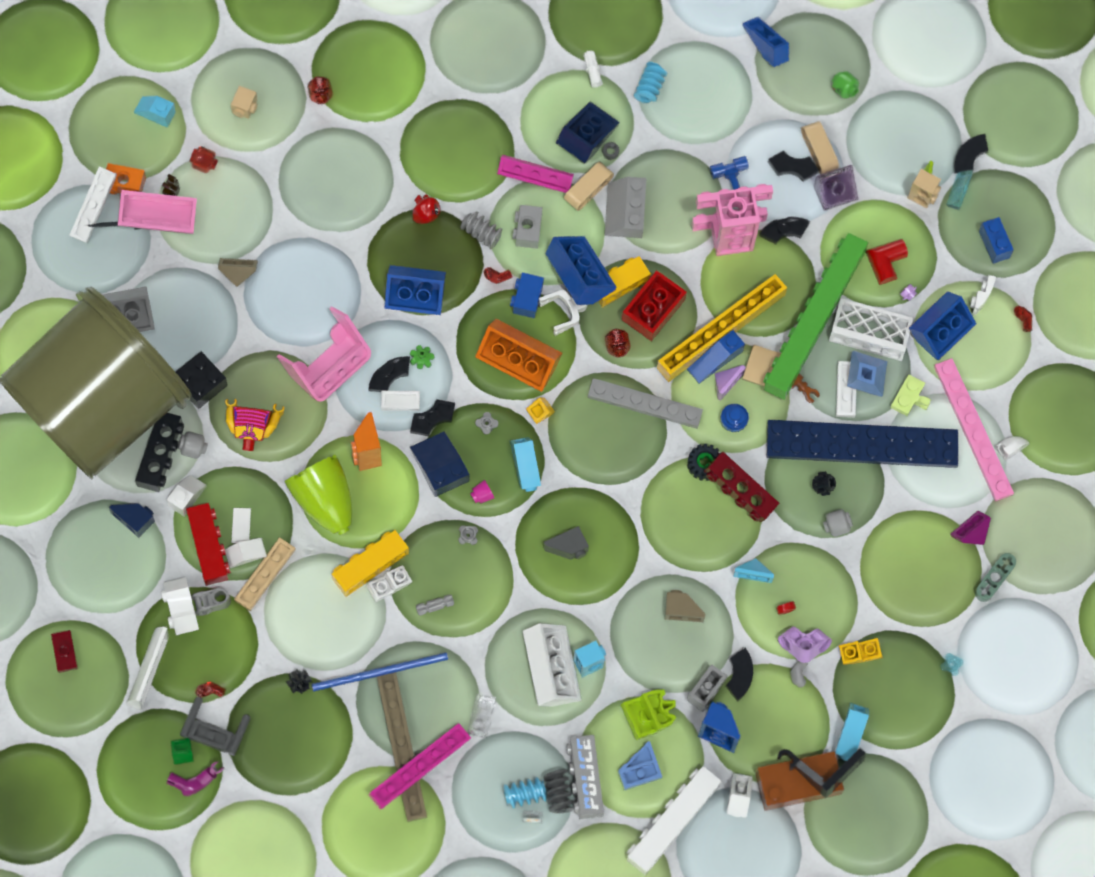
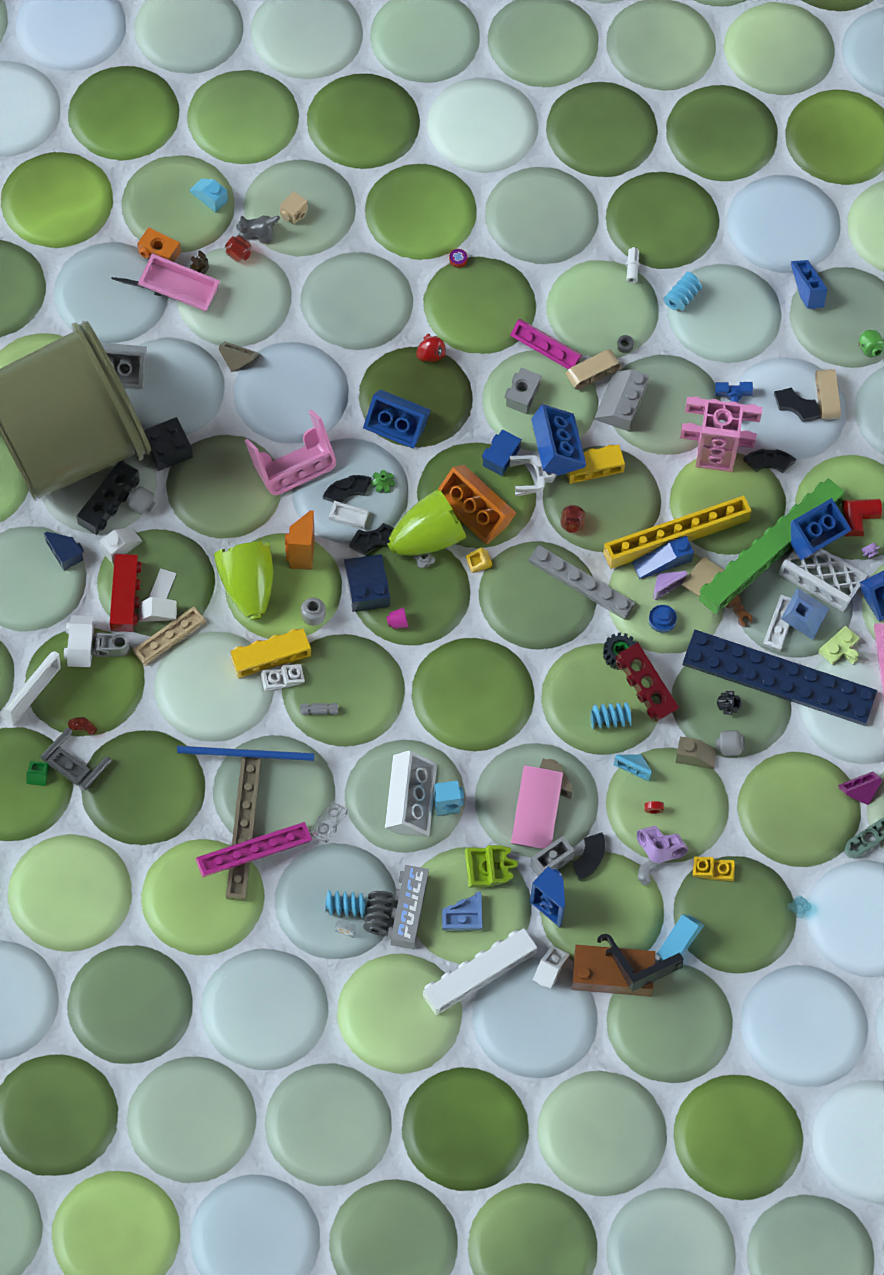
camera: 20 degrees right, 5 degrees down
(93, 204) = (122, 260): white tile -> none
(195, 784) = (41, 805): magenta arm -> none
(218, 131) = (258, 227): none -> dark grey animal
(251, 423) = (203, 495): torso -> none
(299, 681) = (167, 746): black gear -> none
(320, 90) = (368, 215): clear red head -> none
(398, 509) = (313, 611): none -> light grey head
(421, 108) = (458, 258): none -> tile
(464, 530) = (372, 649): light grey plate -> none
(481, 230) = (477, 381): light grey piece -> none
(482, 393) = (426, 527): none -> lime cylinder
(496, 277) = (477, 428): clear red arm -> none
(525, 463) = (447, 604): medium azure slope -> none
(568, 544) = (463, 689): dark grey slope -> none
(587, 132) = (607, 320): dark blue slope -> none
(654, 305) = (618, 494): red brick -> none
(677, 643) = (537, 807): none -> bright pink slope
(716, 529) = (610, 715): none -> medium azure piece
(807, 543) = (695, 753): none -> dark tan slope
(836, 187) = (831, 434): clear purple slope -> none
(855, 288) = (817, 529): none -> blue slope

